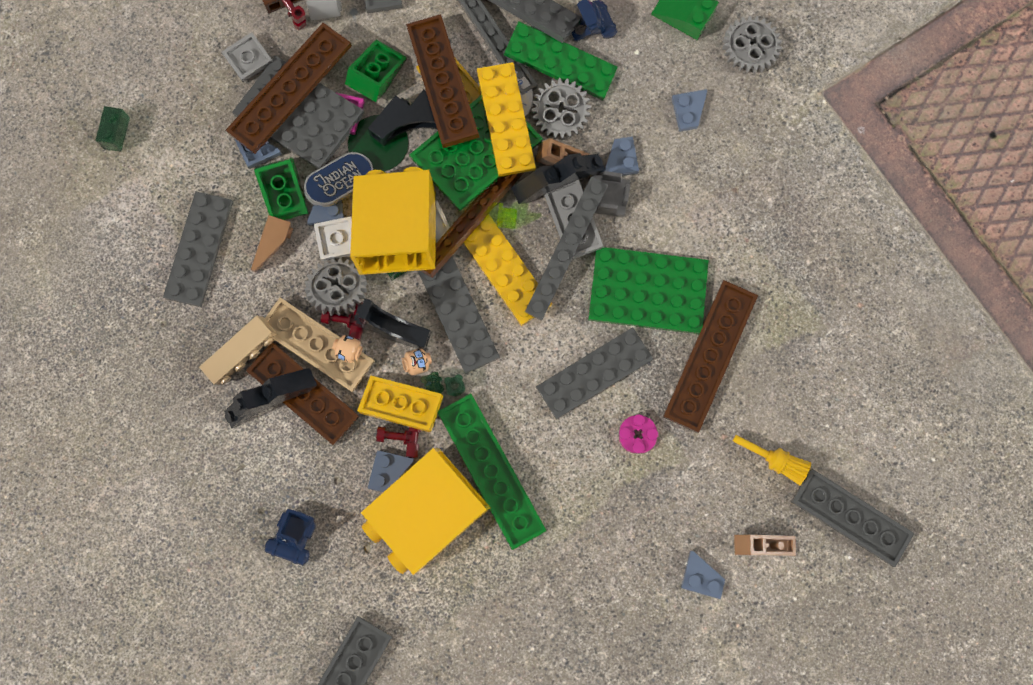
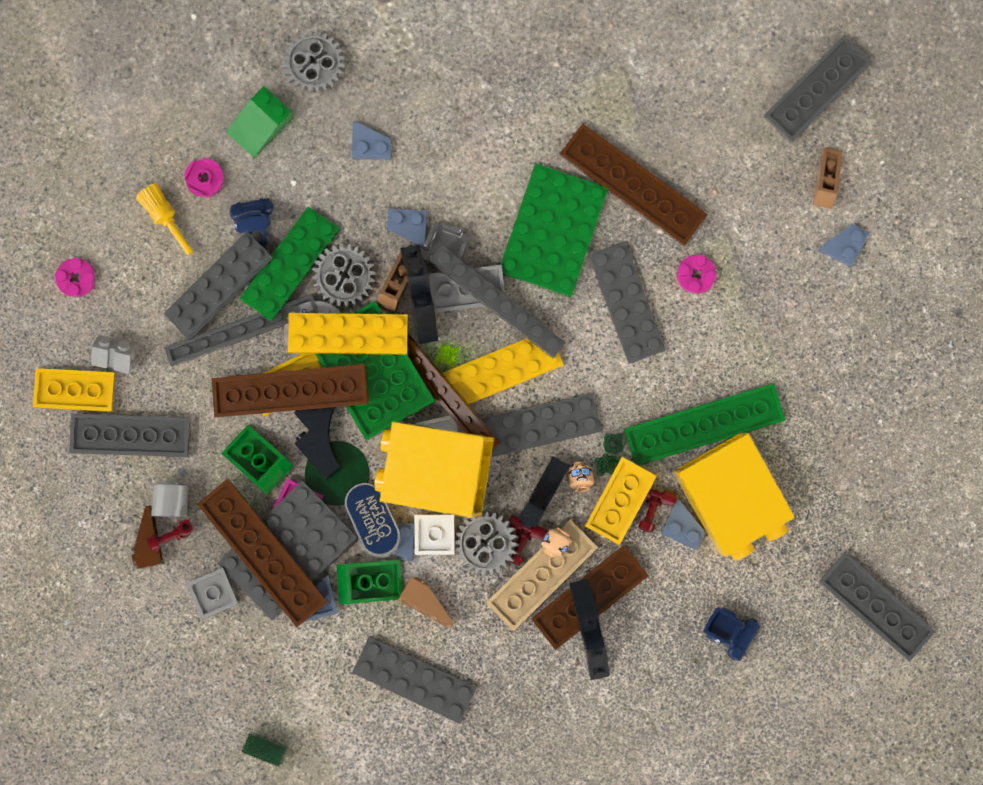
camera: 75 degrees left, 5 degrees up
(238, 351) = (534, 653): tan brick -> none
(779, 460) = (751, 143): yellow piece -> none

